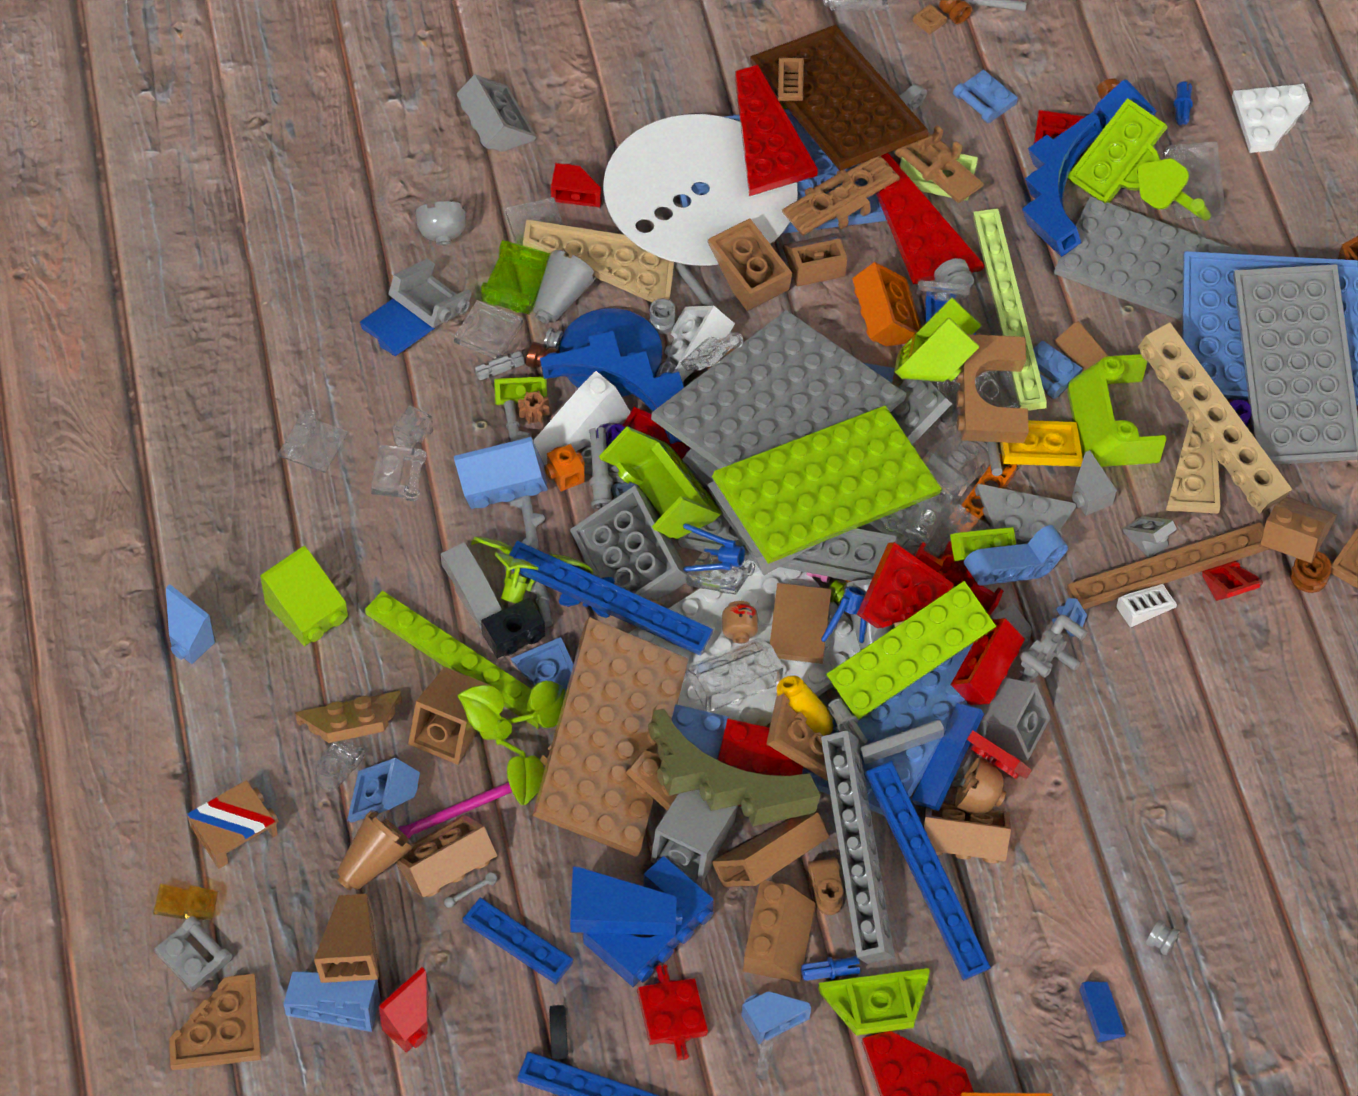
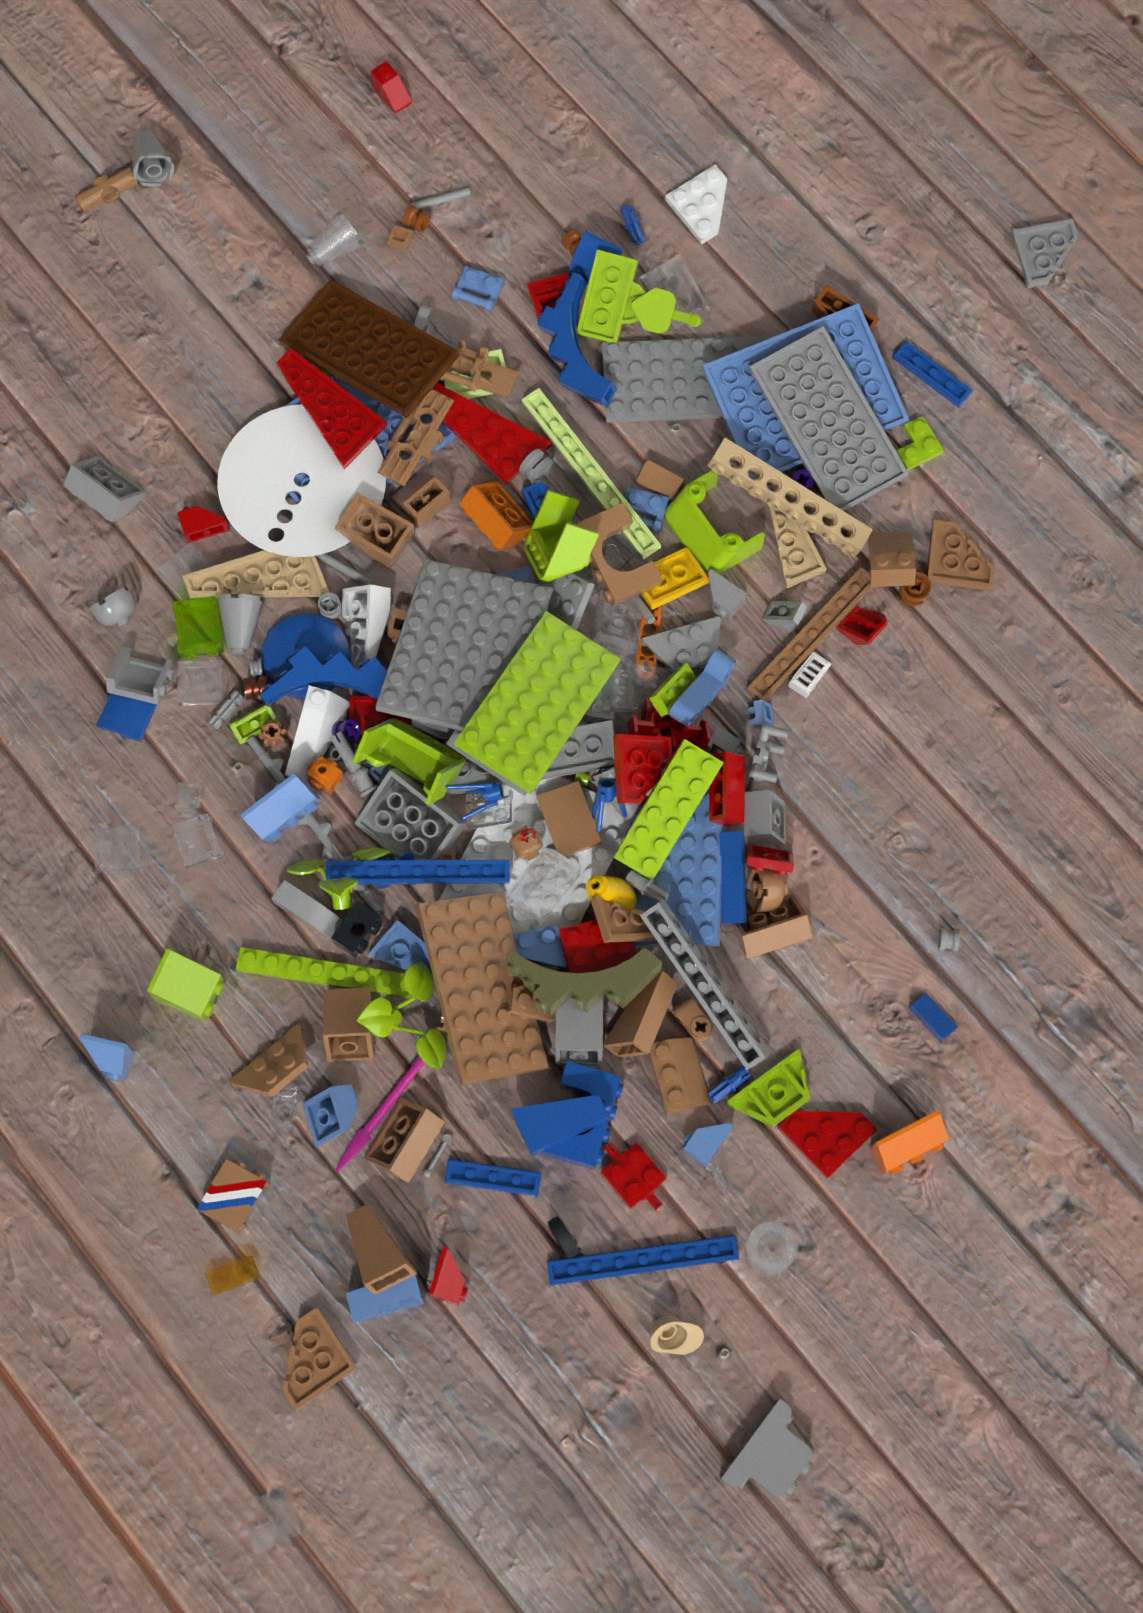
camera: 25 degrees left, 15 degrees up
(185, 960) = (257, 1320): light grey plate -> none
(372, 851) = (352, 1166): medium nougat cone -> none
(711, 351) = (386, 630): clear plate -> none
(791, 65) = (319, 337): medium nougat slope -> none
(902, 741) = (697, 886): light grey tile -> none
(927, 871) = (761, 975): blue tile -> none
(942, 291) = (536, 486): clear plate -> none

